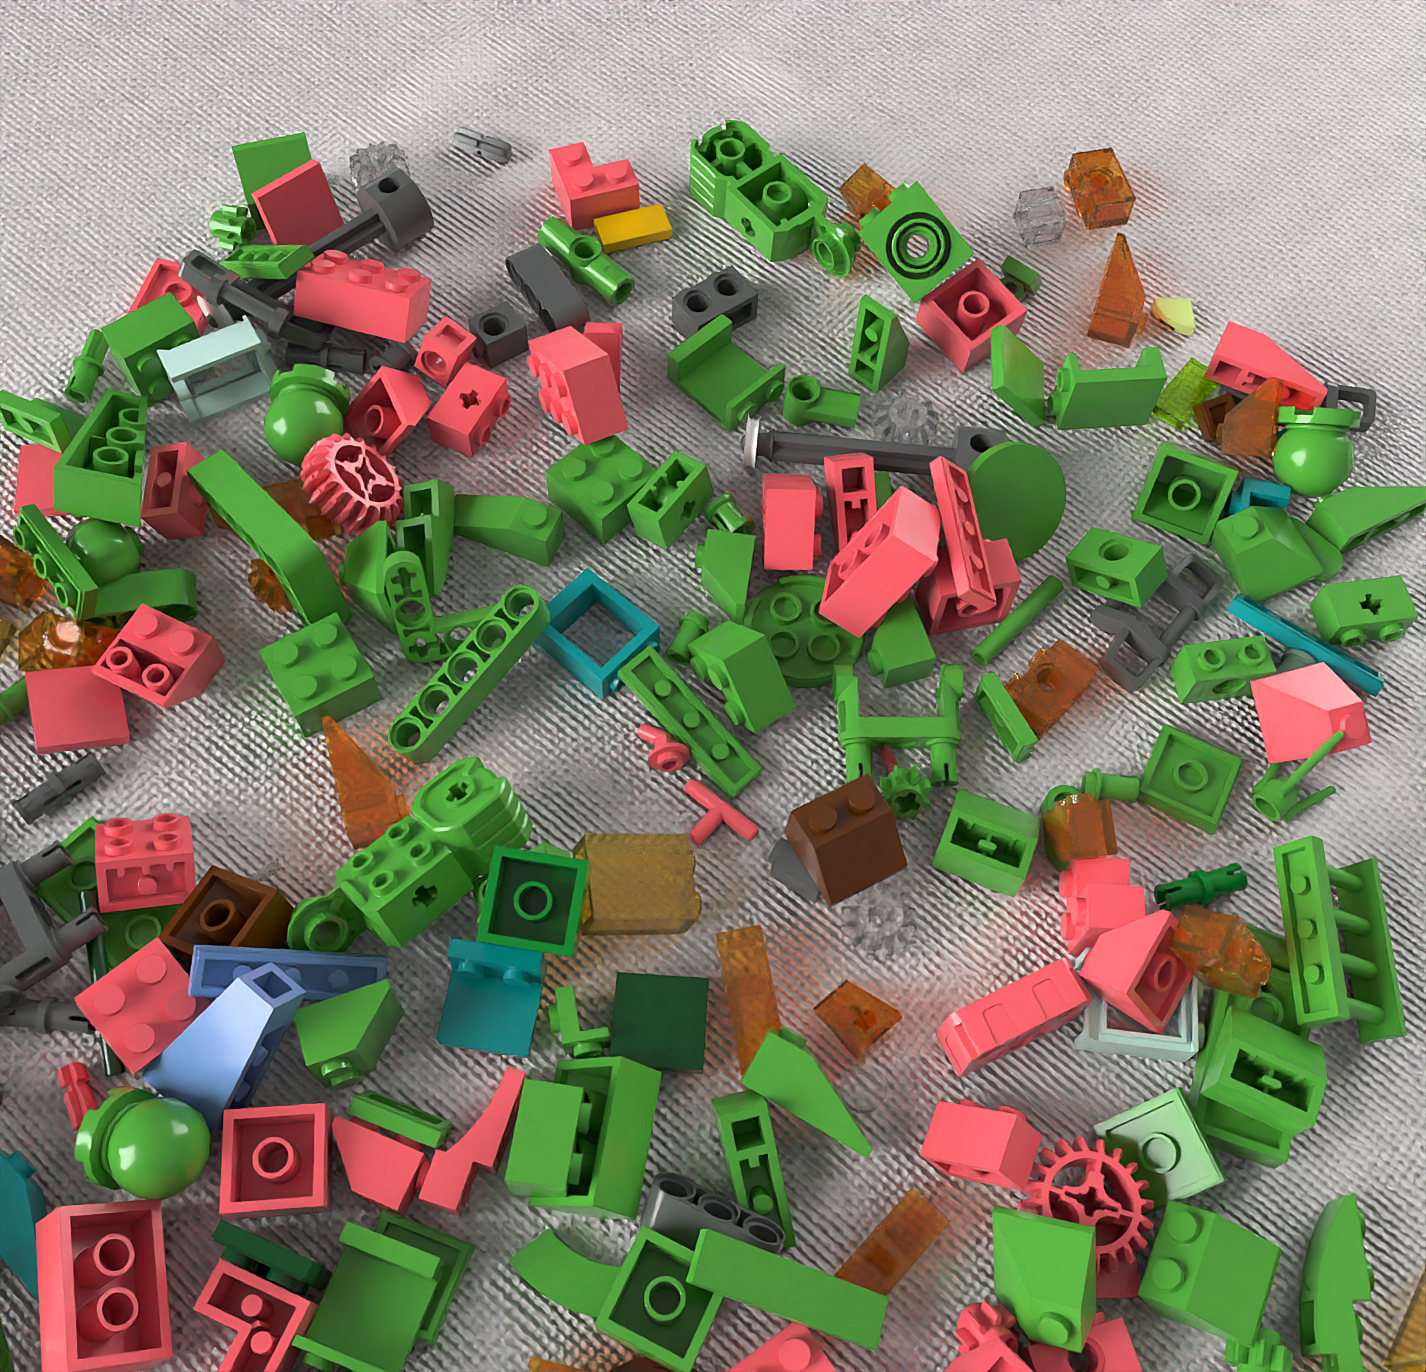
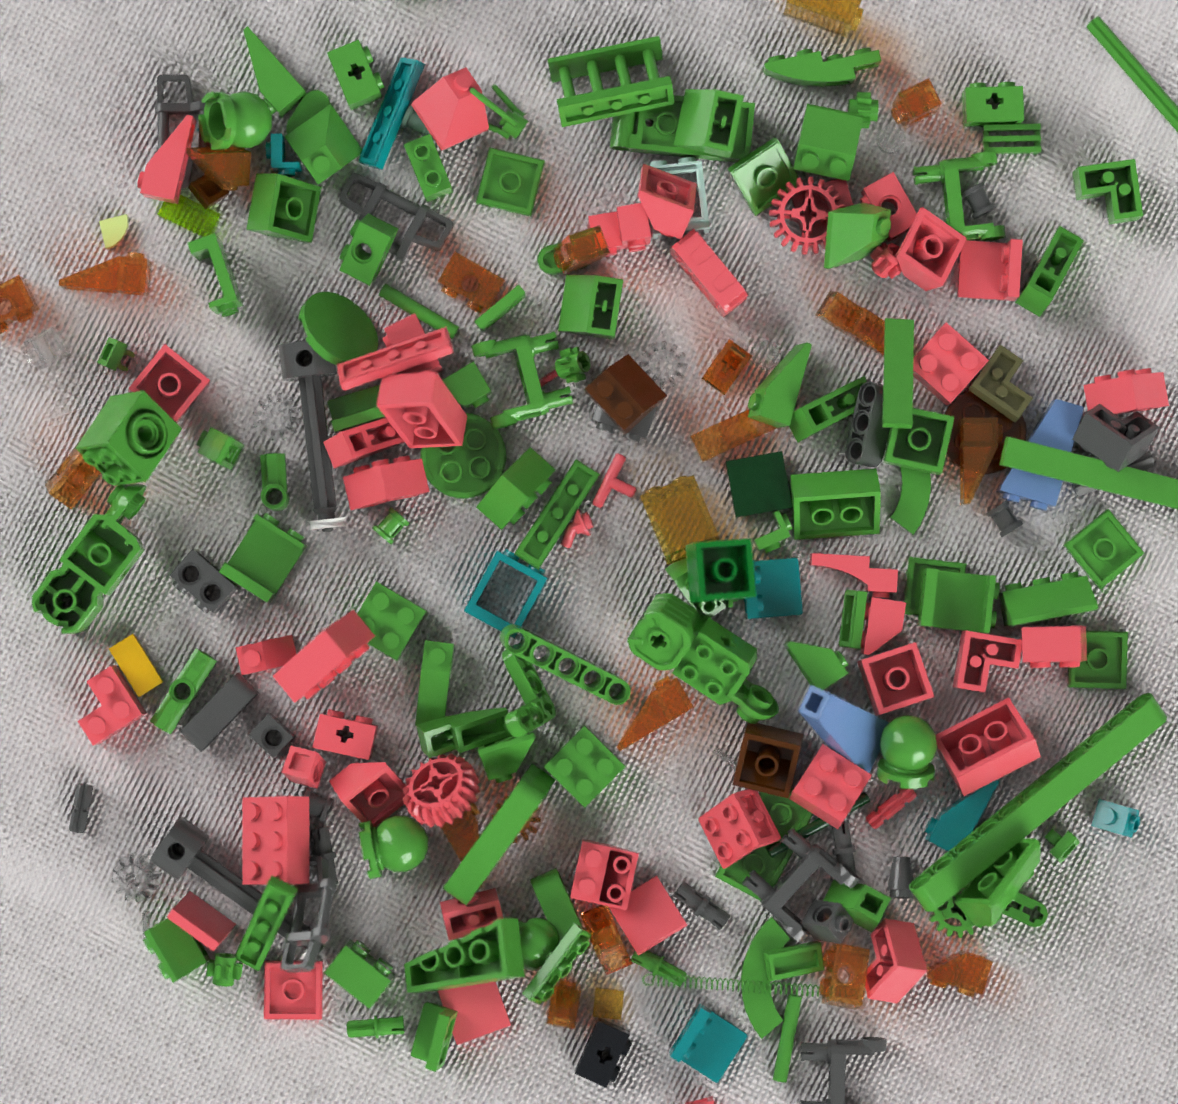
camera: 100 degrees left, 25 degrees up
(220, 370) = (366, 921): light aqua window -> none
(255, 1253) = (950, 649): dark green tile -> none
(317, 972) = (787, 700): medium blue tile -> none
(545, 1140) = (849, 527): bright green slope -> none
(671, 500) = (391, 568): bright green brick -> none
(691, 627) = (491, 532): bright green pin -> none
(727, 570) = (434, 517): bright green slope -> none
(982, 1144) = (789, 280): coral brick -> none
(1017, 376) = (217, 342): bright green tile -> none
(1110, 786) = (531, 233): bright green pin -> none
(1200, 887) = (588, 167): green pin -> none
(1221, 951) = (648, 155): clear orange brick -> none

